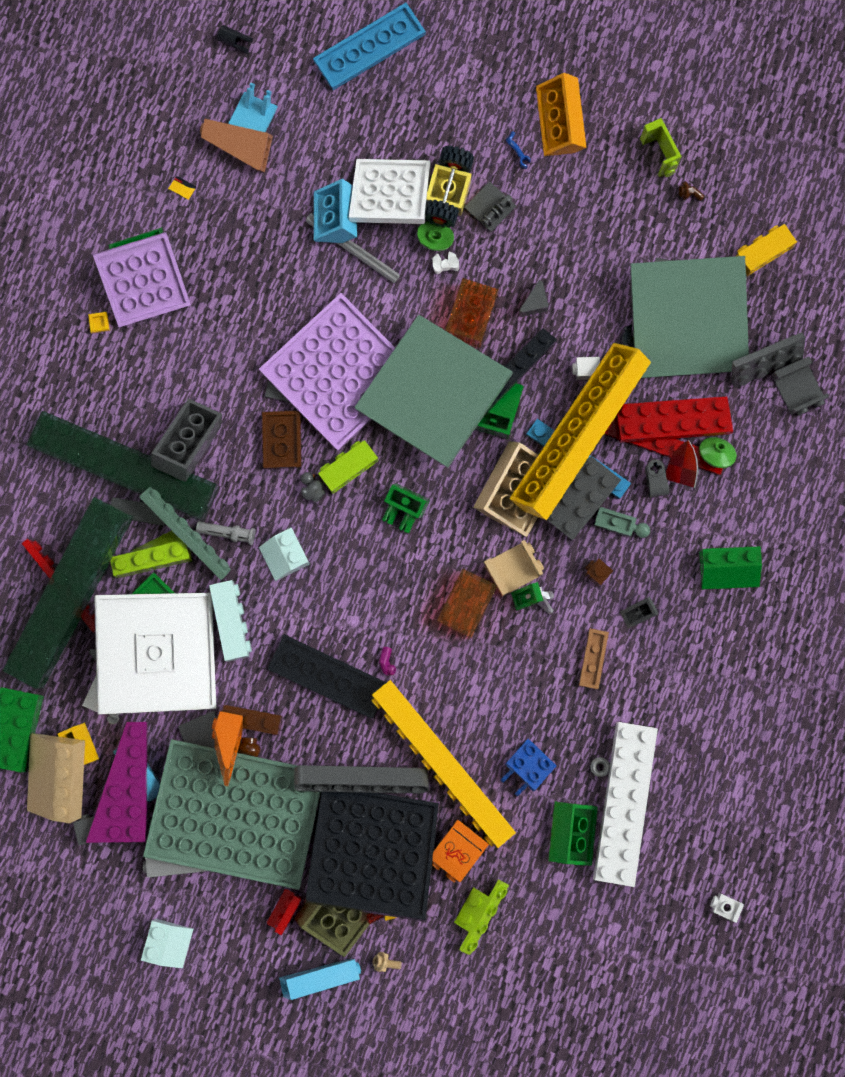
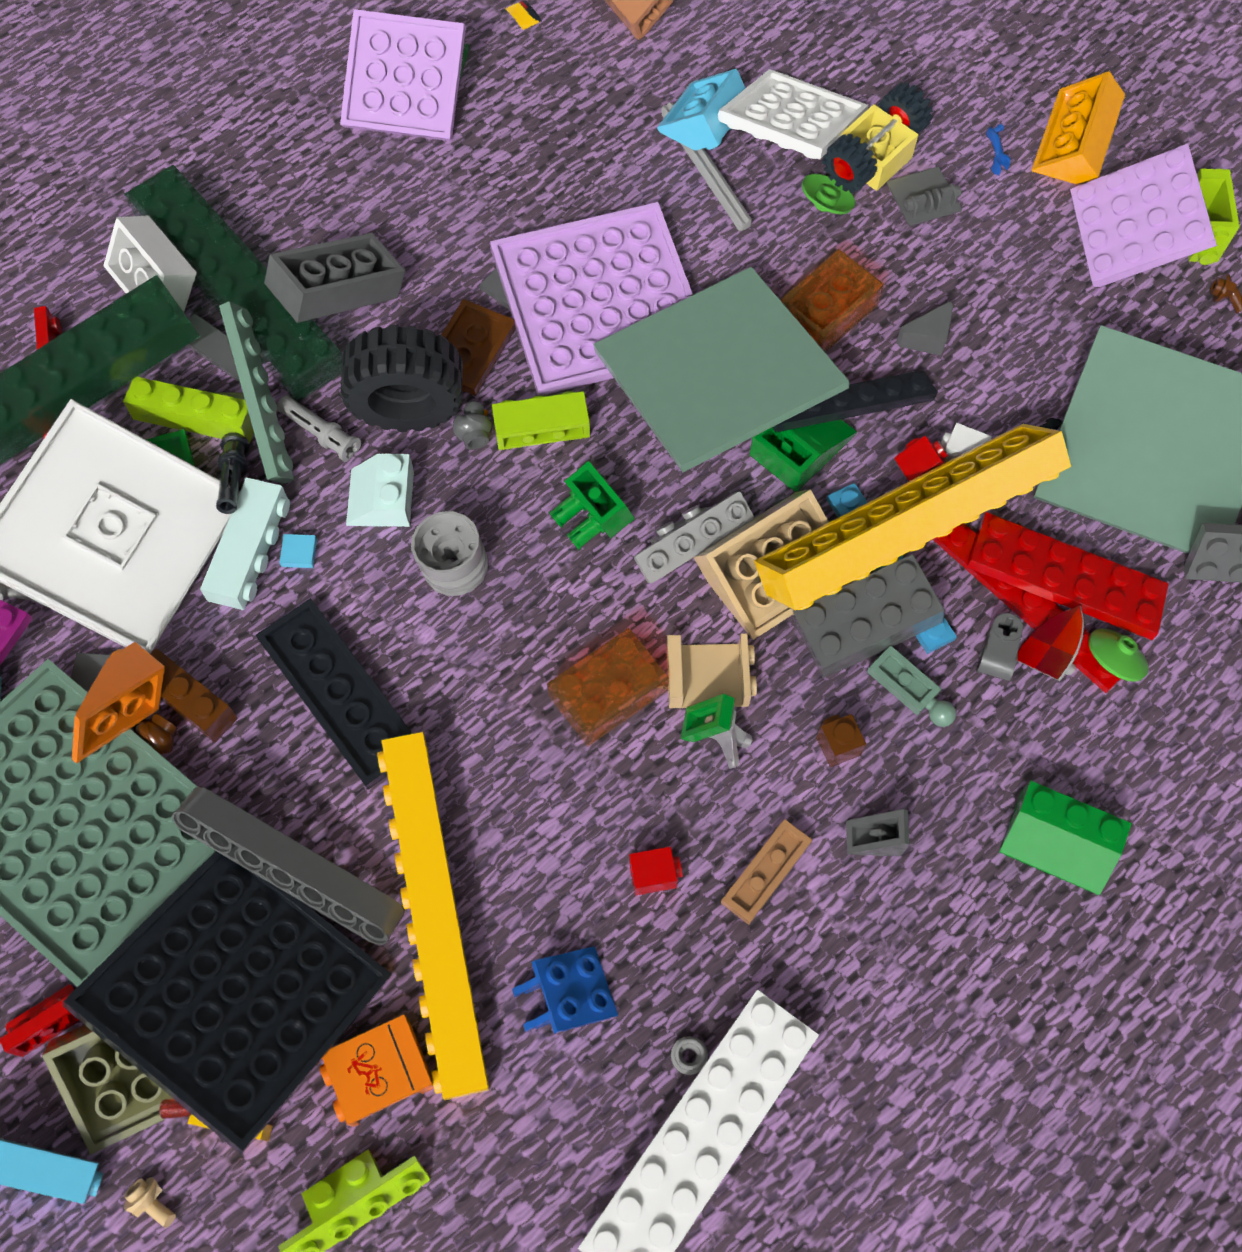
camera: 25 degrees right, 15 degrees down
(71, 484) = (142, 251): none -> white brick
(99, 322) = (319, 111): yellow tile -> none
(194, 579) = (228, 496): none -> black pin
(259, 609) = (298, 551): none -> medium azure tile
(265, 488) = (401, 378): none -> black tyre
(342, 562) = (448, 537): none -> light grey wheel
(384, 662) = (434, 714): magenta arm -> none
(445, 265) = (833, 238): white piece -> none
(466, 495) = (692, 535): none -> light grey bracket
(539, 687) = (654, 870): none -> red brick
(568, 389) = (921, 457): none -> red brick
(573, 833) = (585, 1146): green slope -> none
(623, 168) = (1142, 216): none -> lavender plate

